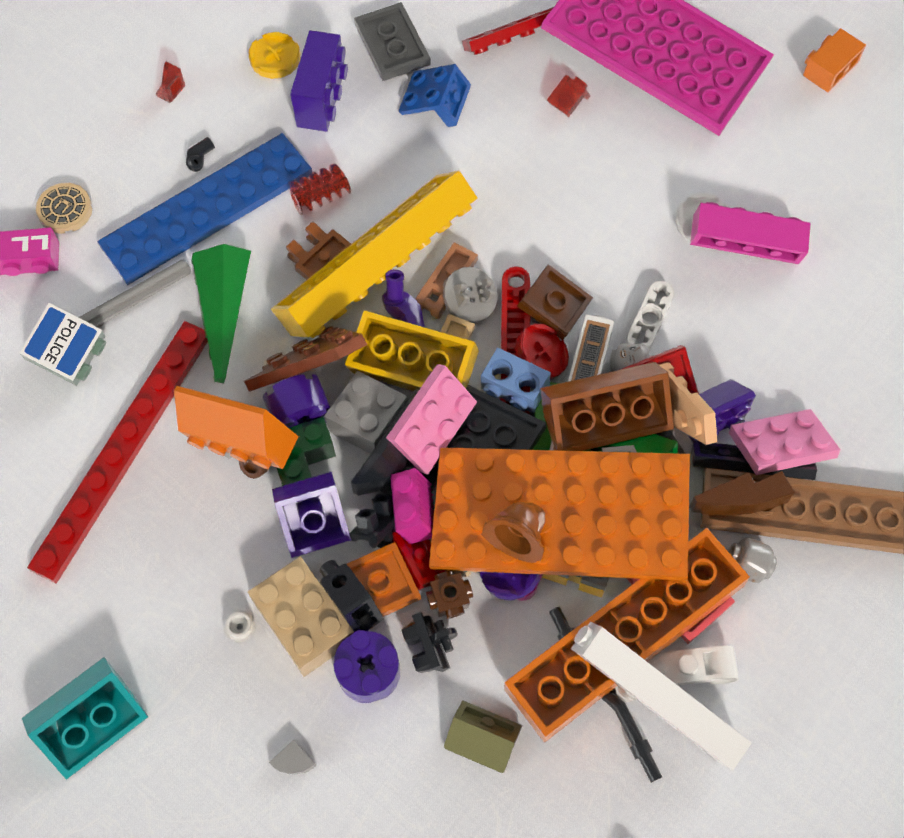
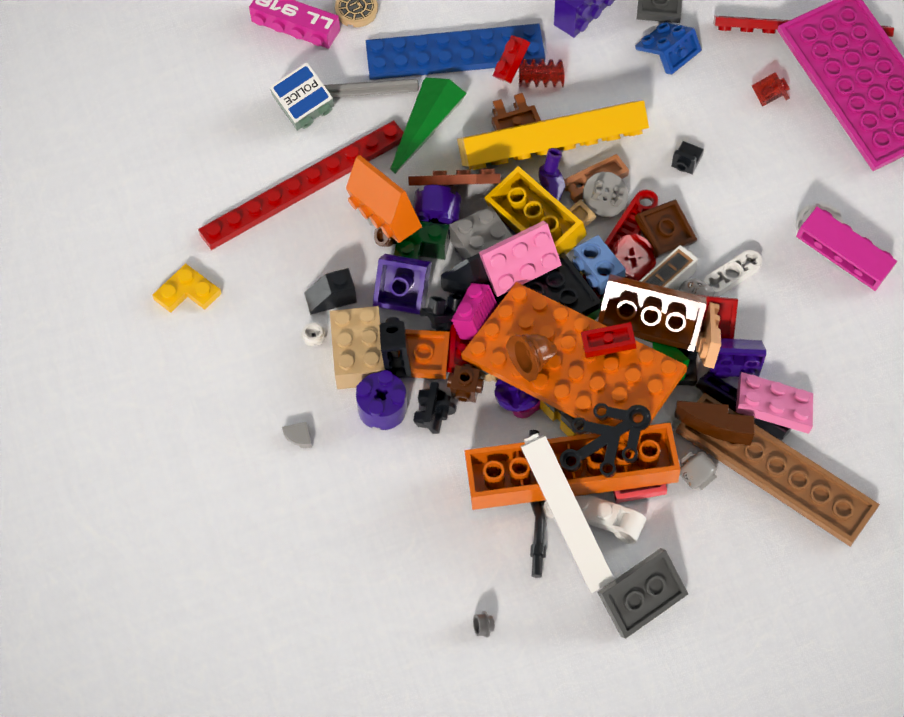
camera: 30 degrees right, 5 degrees down
(50, 642) = (185, 284): none -> yellow plate
(84, 718) = (181, 339): teal slope -> none
(196, 154) = (469, 11): black arm -> none
(231, 564) = (331, 292): none -> black slope
(278, 188) = (511, 59): none -> red plate
(482, 736) = (432, 485): olive panel -> none
(527, 210) = (687, 157): none -> black bracket
(592, 469) = (608, 340): none -> red plate
(661, 583) = (609, 436): none -> black plant
(784, 738) = (643, 593): none -> dark grey plate

